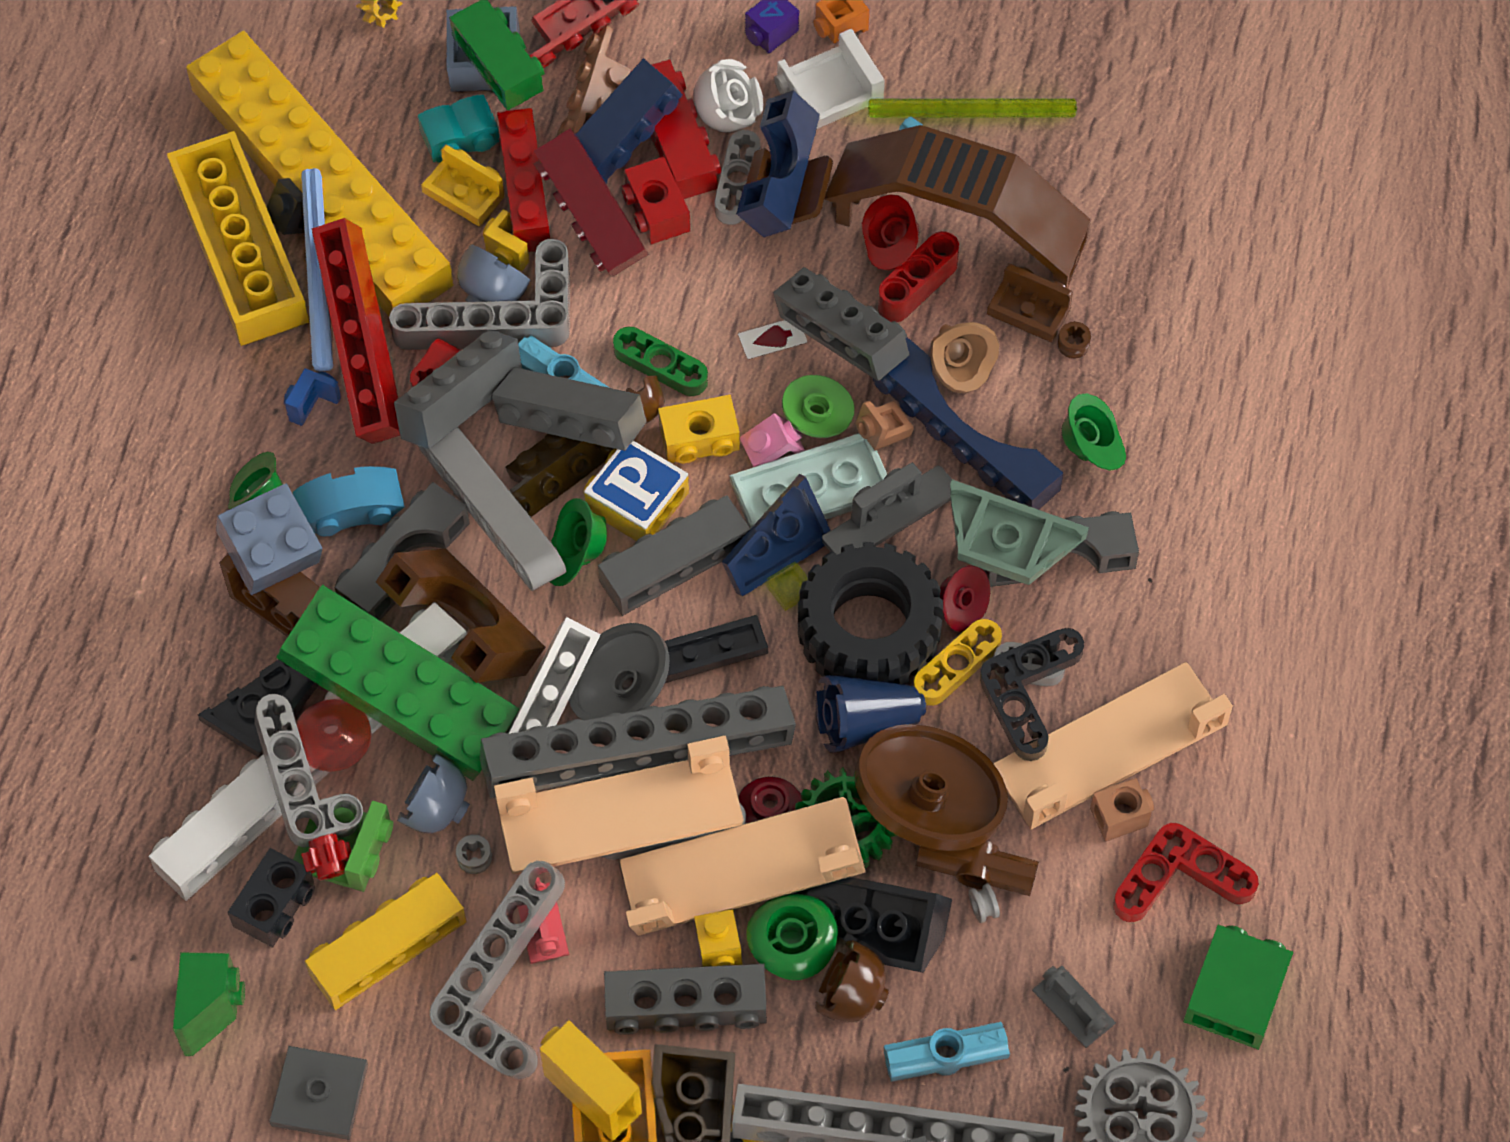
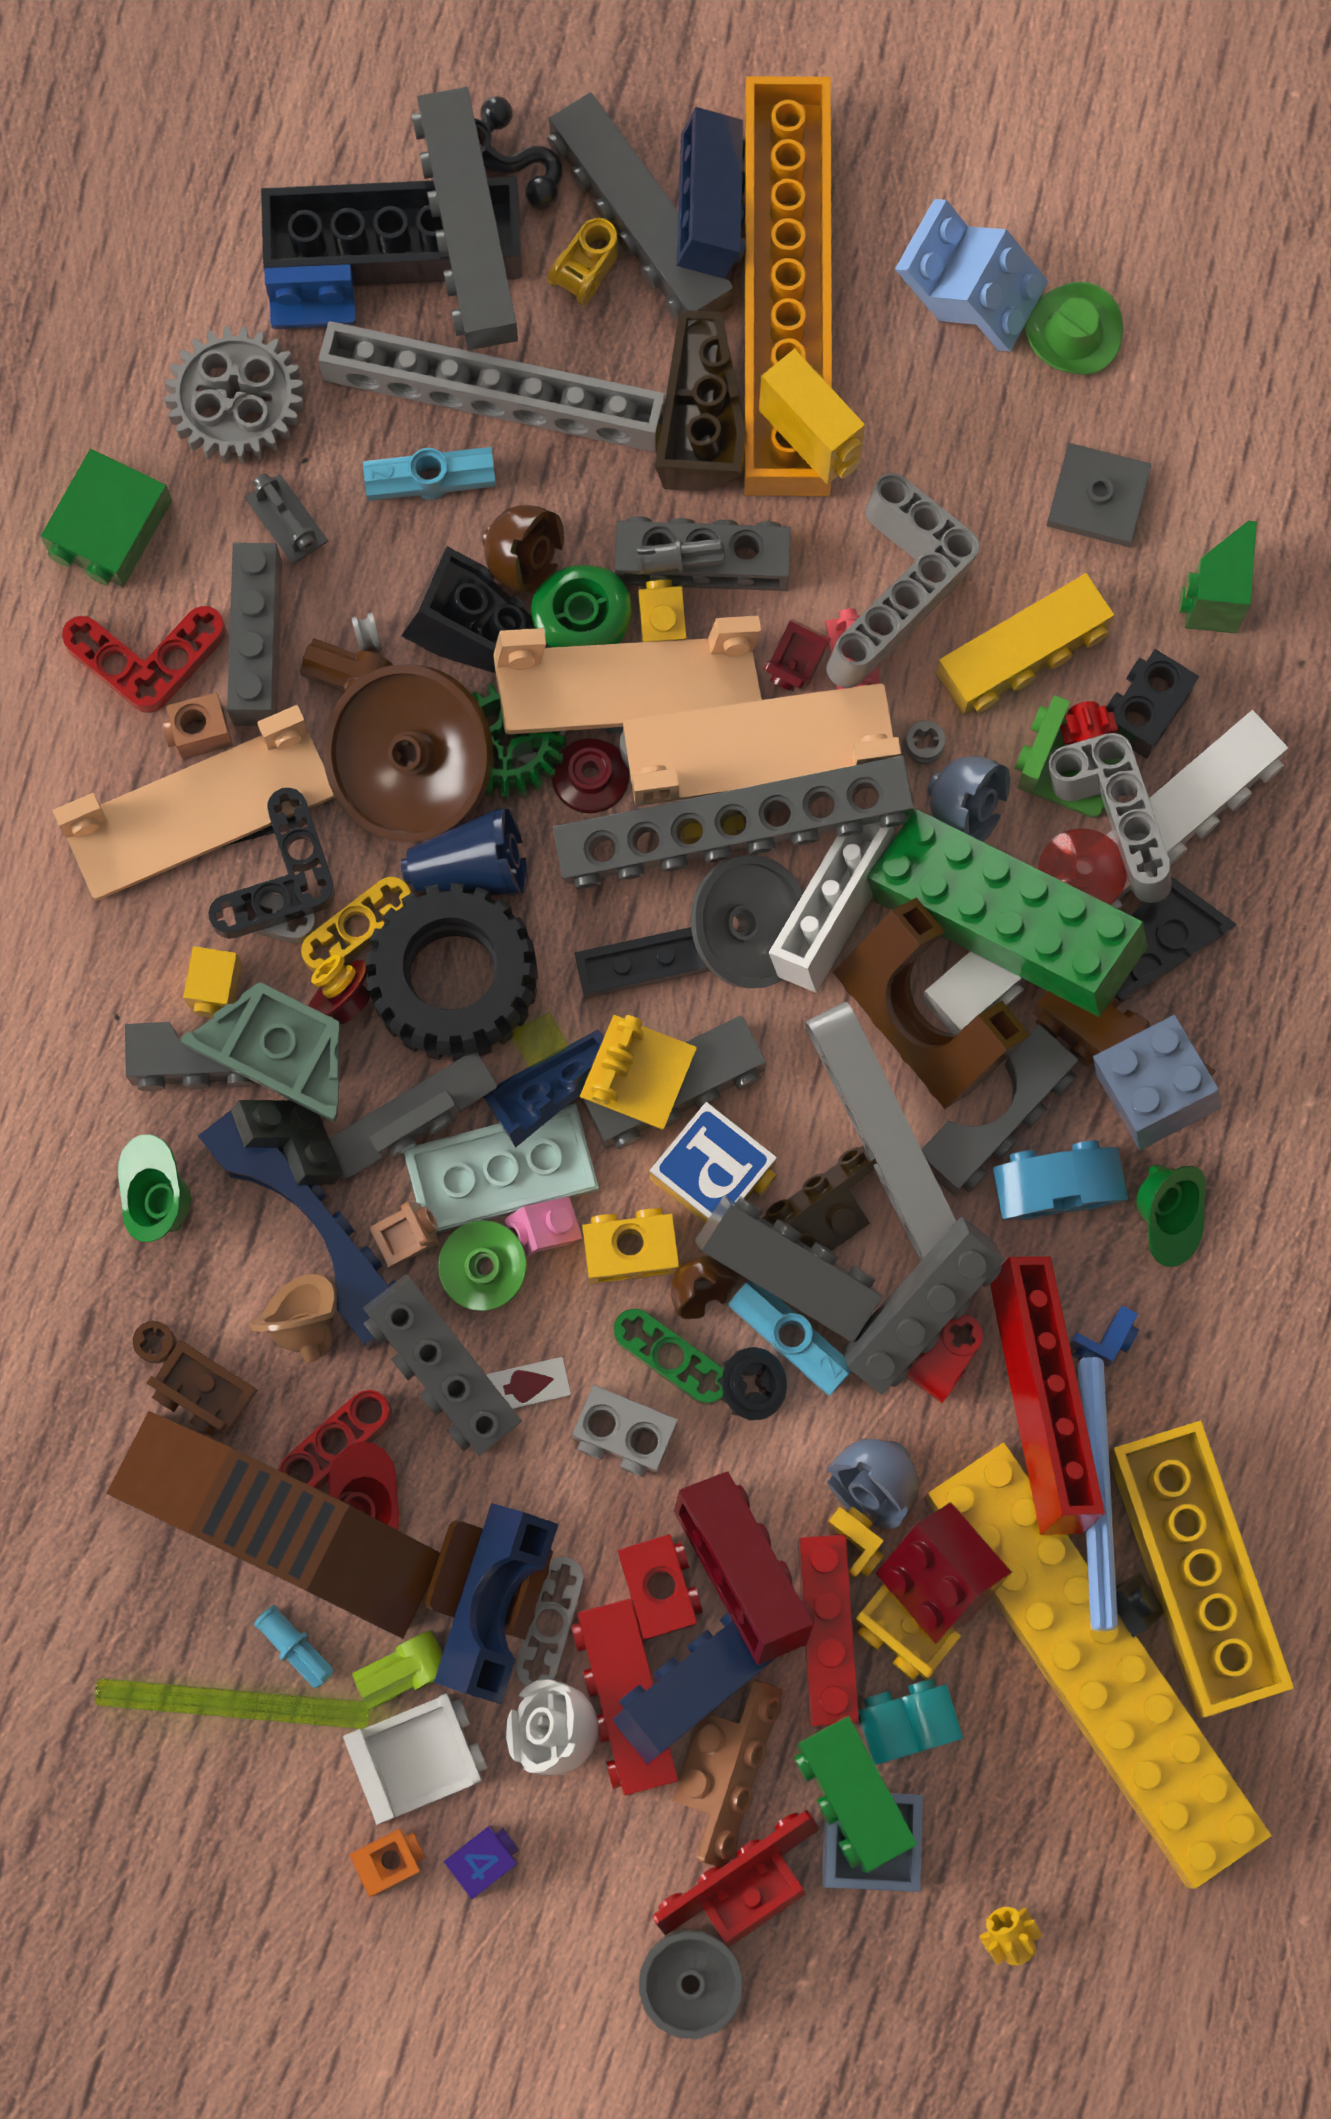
camera: 175 degrees left, 15 degrees up
(436, 208) = (943, 1572): none -> dark red brick
(495, 314) = (870, 1411): light grey beam -> none
(578, 538) = (792, 1104): green piece -> none
(589, 329) = (770, 1381): none -> black gear
(594, 910) = (796, 656): none -> dark red bracket
(689, 310) = (629, 1420): none -> light grey brick
(704, 541) = (638, 1071): none -> yellow hinge
(704, 970) = (680, 556): none -> dark grey axle
(833, 136) = (409, 1667): none -> lime piece
(968, 612) = (333, 976): none -> yellow bush
(1008, 480) = (296, 1131): none -> pearl dark grey plate
(1073, 601) = (211, 980): none -> yellow brick
(1084, 891) = (254, 633): none -> dark grey brick

